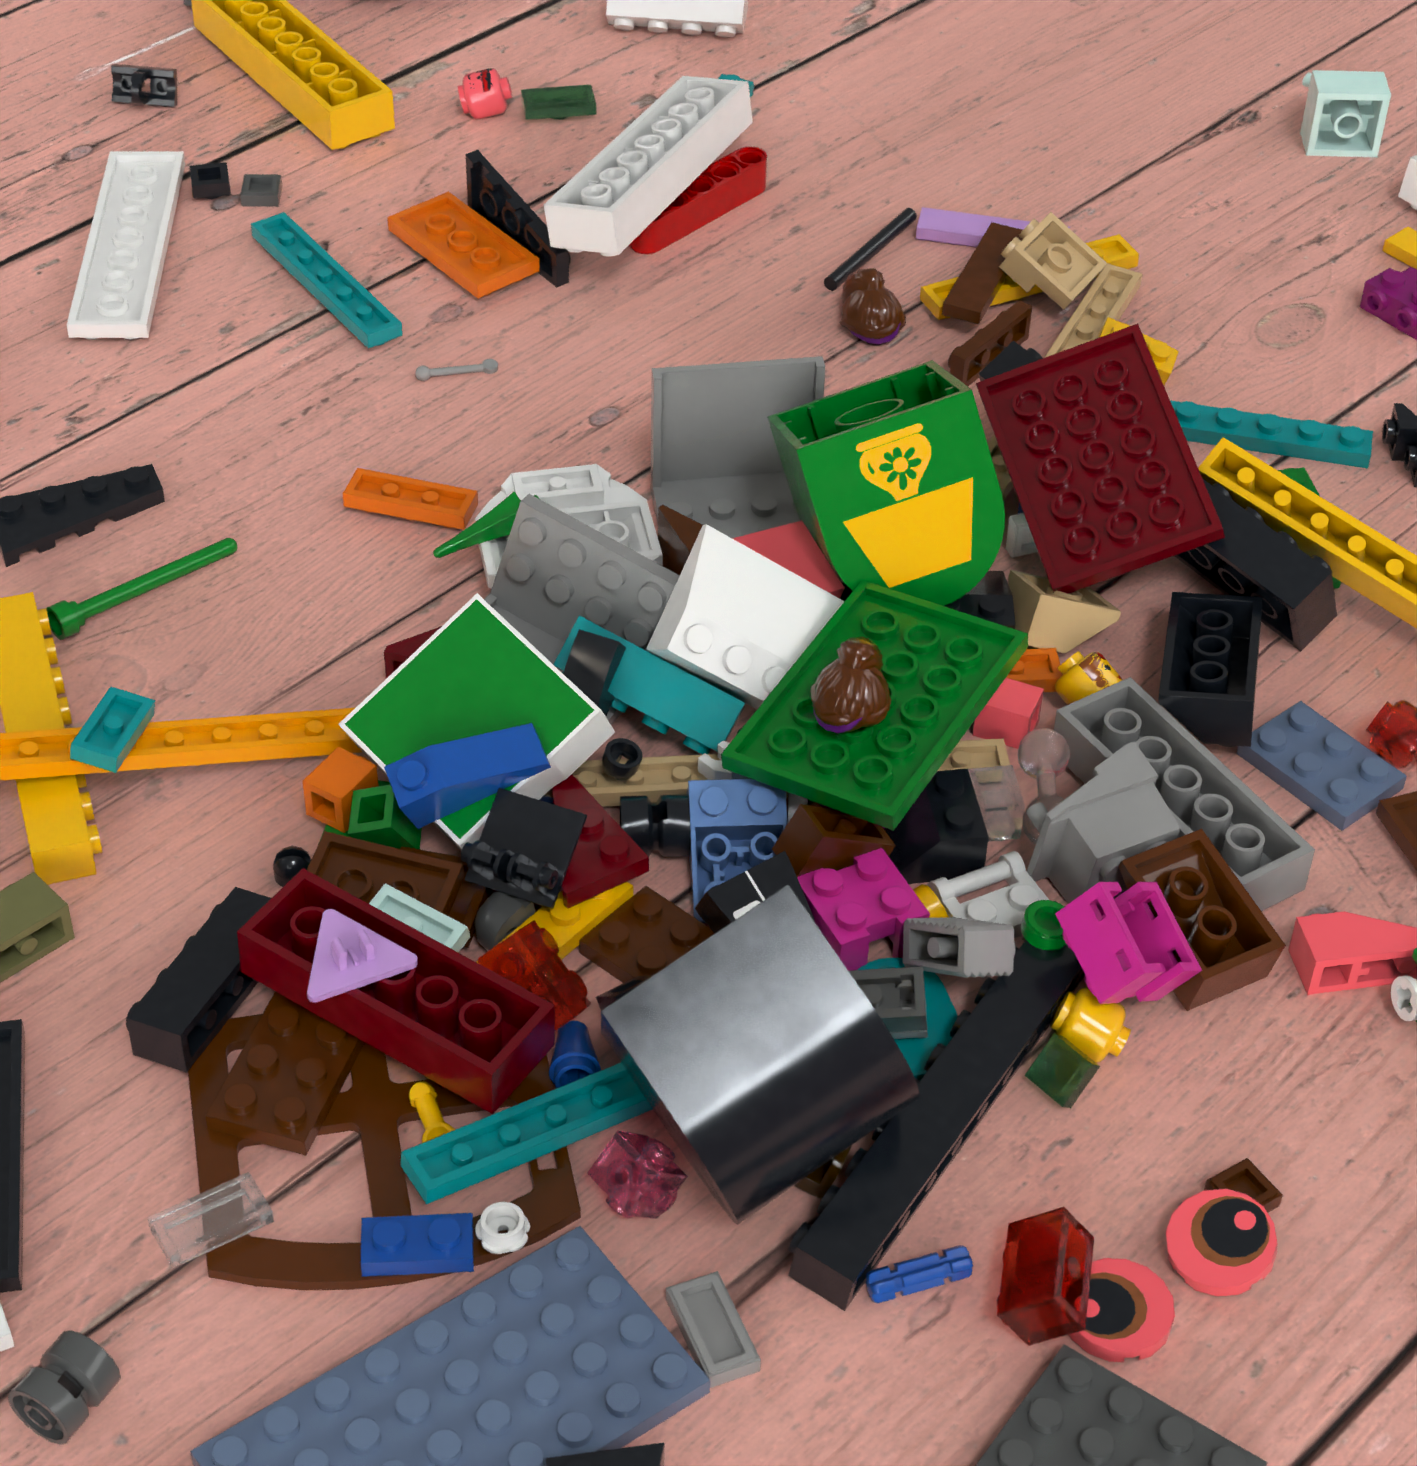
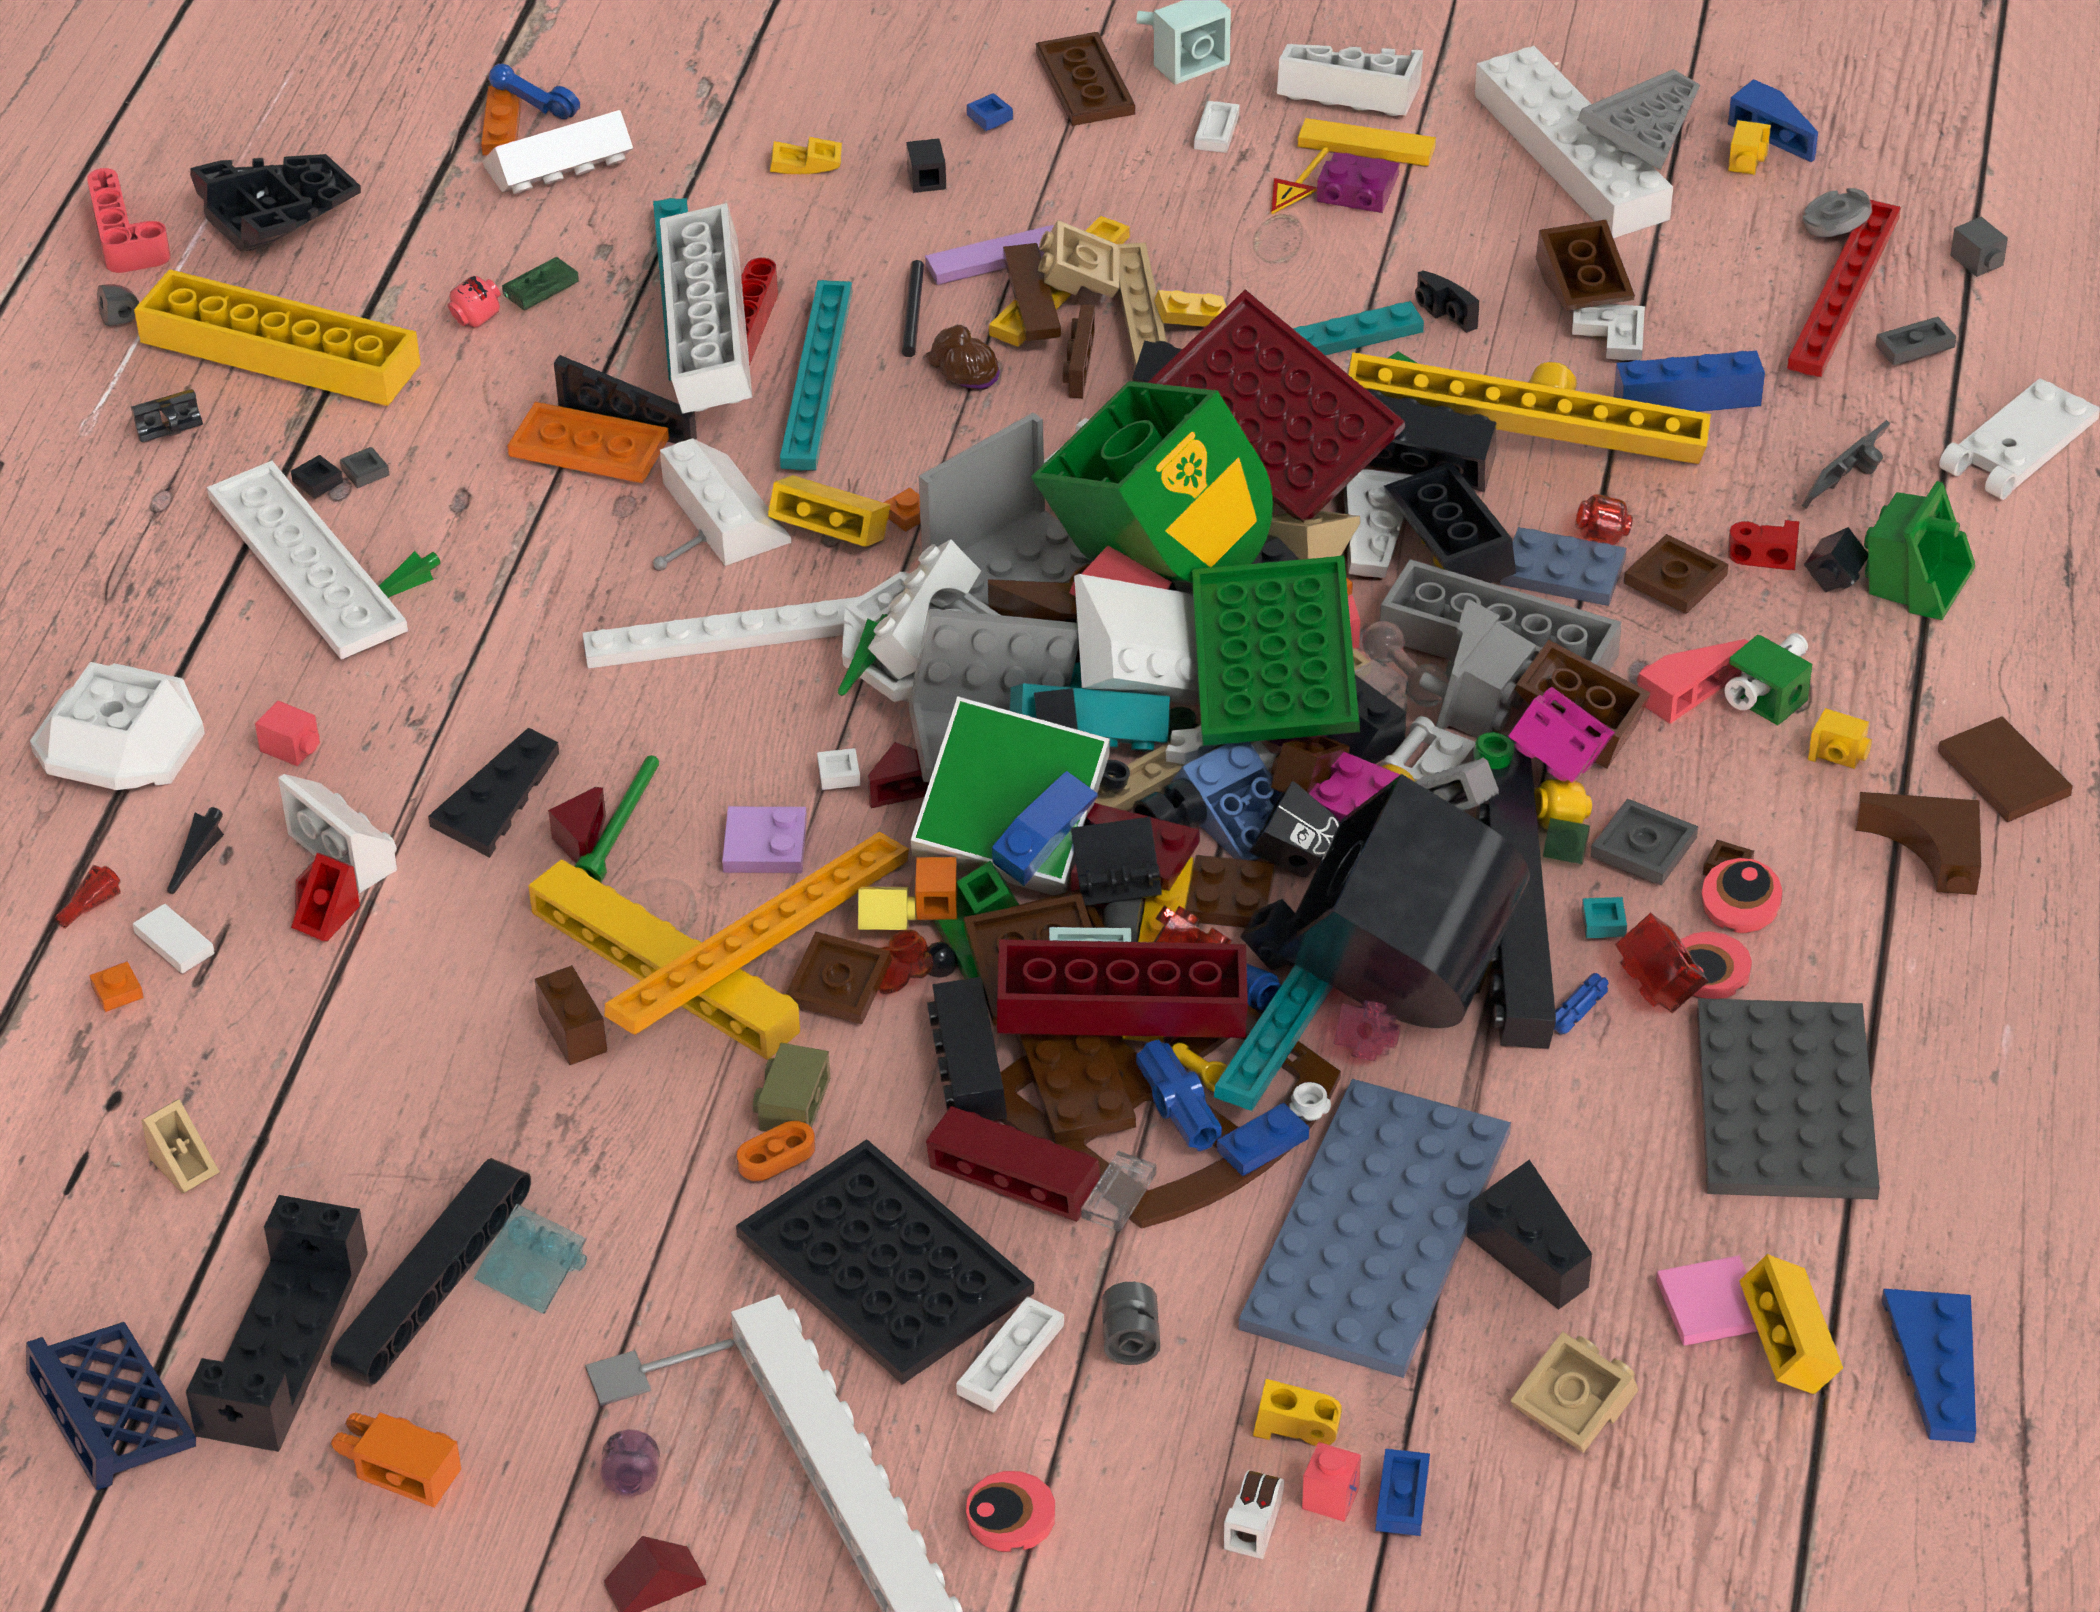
camera: 30 degrees left, 0 degrees up
(100, 567) = (578, 823): none -> dark red slope
(112, 729) = (755, 917): teal plate -> none
(132, 1124) = (1012, 1163): none -> dark red brick
(170, 835) = (839, 977): none -> reddish brown plate
(201, 291) = (410, 574): none -> green piece
(248, 848) = (908, 960): none -> clear red plate
(253, 666) = (764, 839): none -> lavender plate
(274, 785) = (885, 908): none -> light yellow brick
(327, 280) = (506, 519): teal plate -> none
(352, 957) = (1090, 977): lavender piece -> none
(368, 1143) = (1178, 1095): none -> blue piece
(382, 628) = (838, 769): none -> white plate
(389, 450) = (715, 633): none -> white plate
(410, 498) = (758, 664): orange plate -> none
(526, 340) = (720, 501): none -> white slope
(604, 386) = (829, 510): none -> yellow brick
(616, 486) = (941, 579): none -> white arch
(713, 1329) = (1482, 1094): light grey tile -> none
(719, 270) = (816, 375): none -> teal plate
(852, 688) = (1264, 647): reddish brown hair -> none
(904, 93) = (817, 157): none -> yellow slope
(994, 133) = (926, 165): none -> black brick
(1032, 1183) = (1604, 917): none -> teal plate
(1084, 676) = (1372, 577): yellow head -> none
(1098, 112) = (989, 111): none -> blue plate
(1142, 627) = (1379, 526): none -> white wing
(1156, 1117) = (1644, 841): none -> dark grey plate
(1219, 119) = (1085, 78): none -> reddish brown tile
(1313, 203) = (1216, 126): none -> white tile
(1337, 286) = (1289, 192): none -> yellow piece

